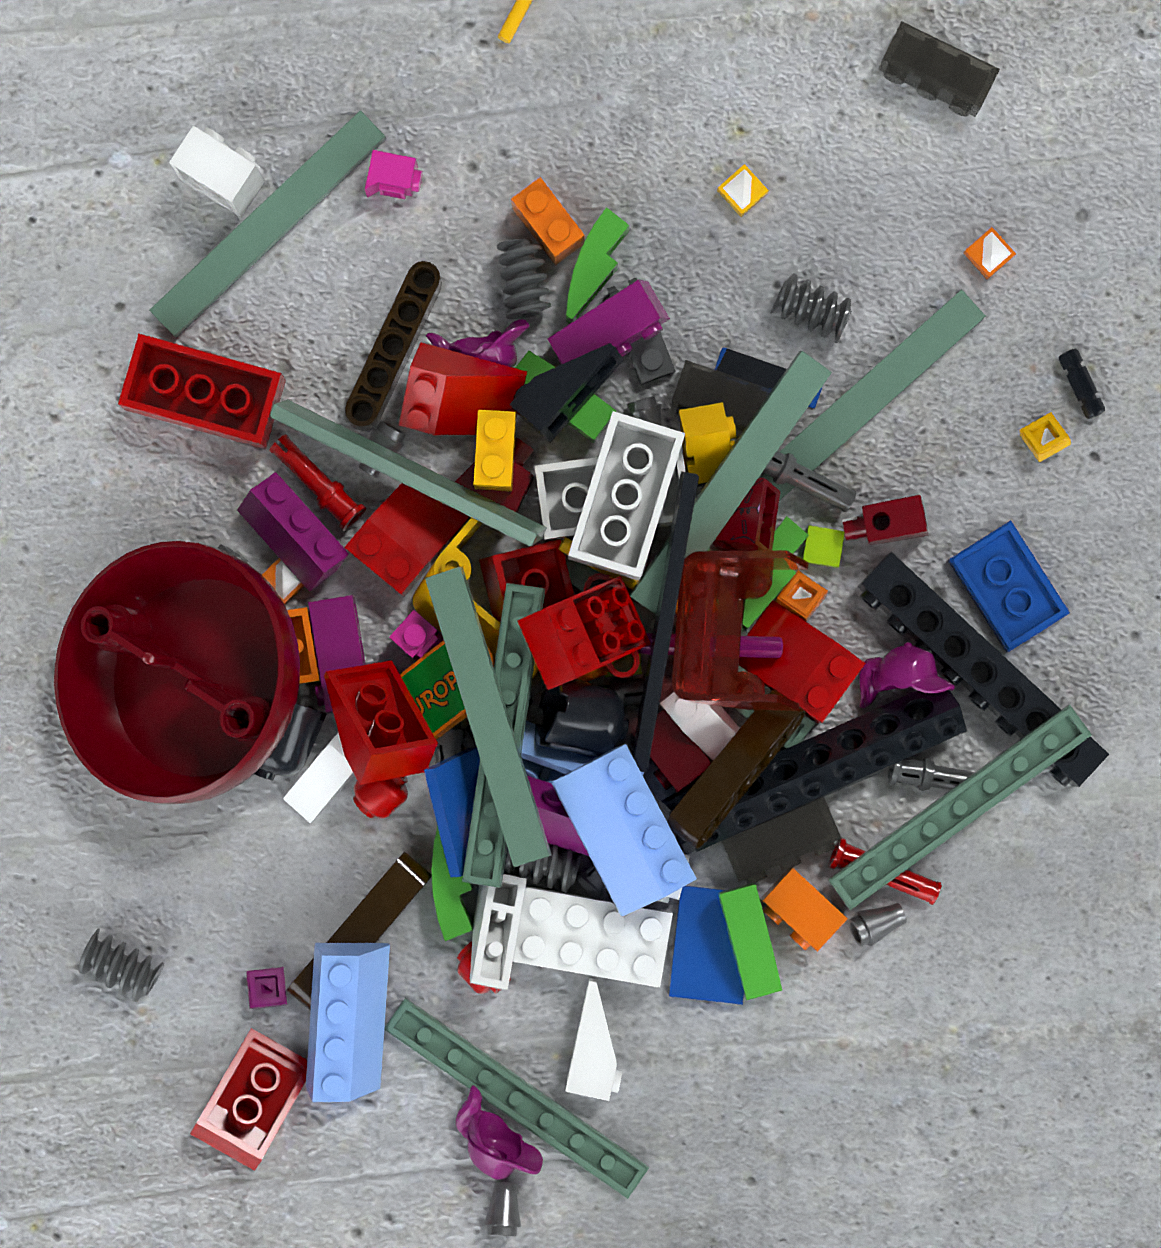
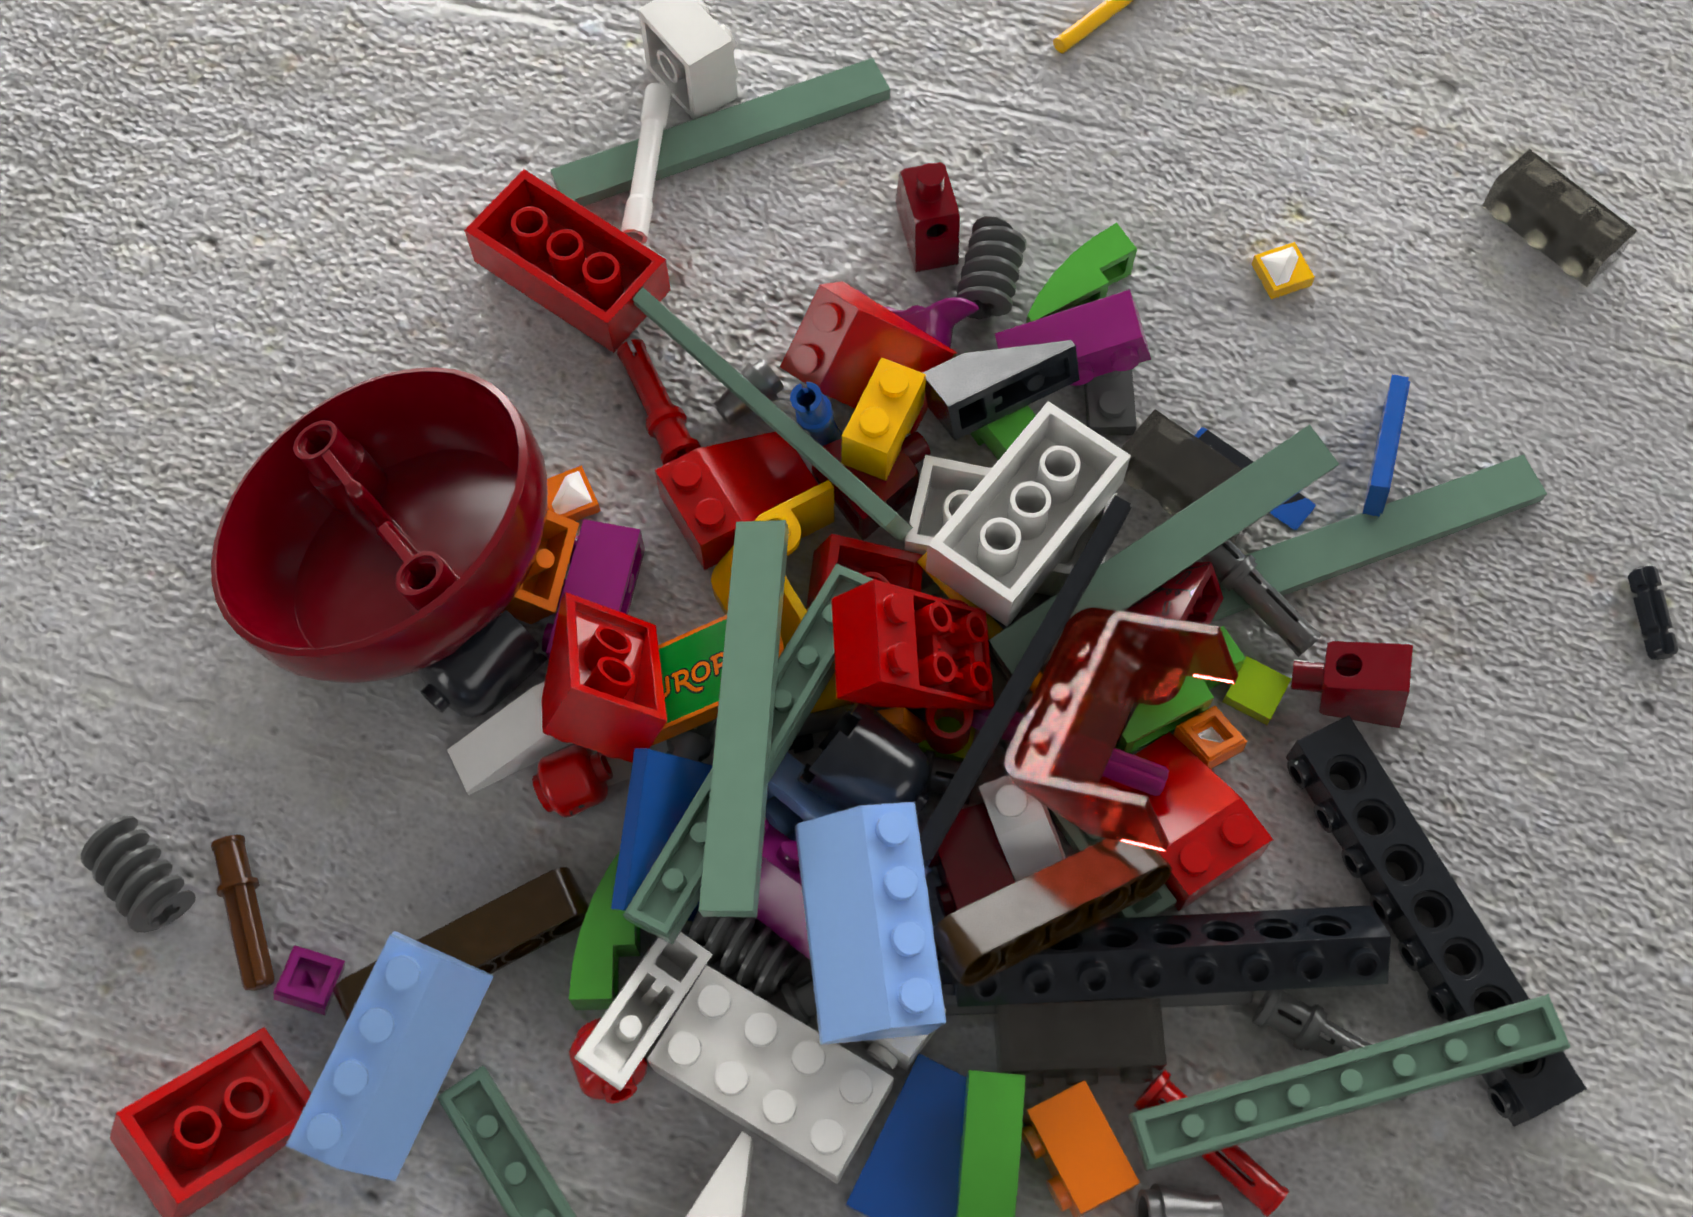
camera: 25 degrees right, 20 degrees down
(200, 961) = (243, 912): none -> reddish brown axle
(213, 240) = (653, 121): none -> white piece
(292, 531) = (602, 440): magenta brick -> none
(393, 175) = (881, 125): dark pink window -> none
(394, 328) = (787, 296): dark brown beam -> none
(416, 636) = (695, 602): dark pink window -> none
(447, 468) = (815, 413): none -> blue pin
(461, 250) = (922, 201): none -> dark red torso
(548, 221) = (1043, 218): orange brick -> none
(706, 438) = (1156, 489): yellow brick -> none
(813, 307) = (1330, 411): dark grey piece -> none
(861, 323) = (1386, 446): none -> blue tile
(901, 669) = (1316, 871): magenta hair -> none
(989, 253) = (1568, 429): tile -> none
(1008, 586) = (1492, 826): blue tile -> none
(1045, 437) = (1589, 657): yellow tile -> none

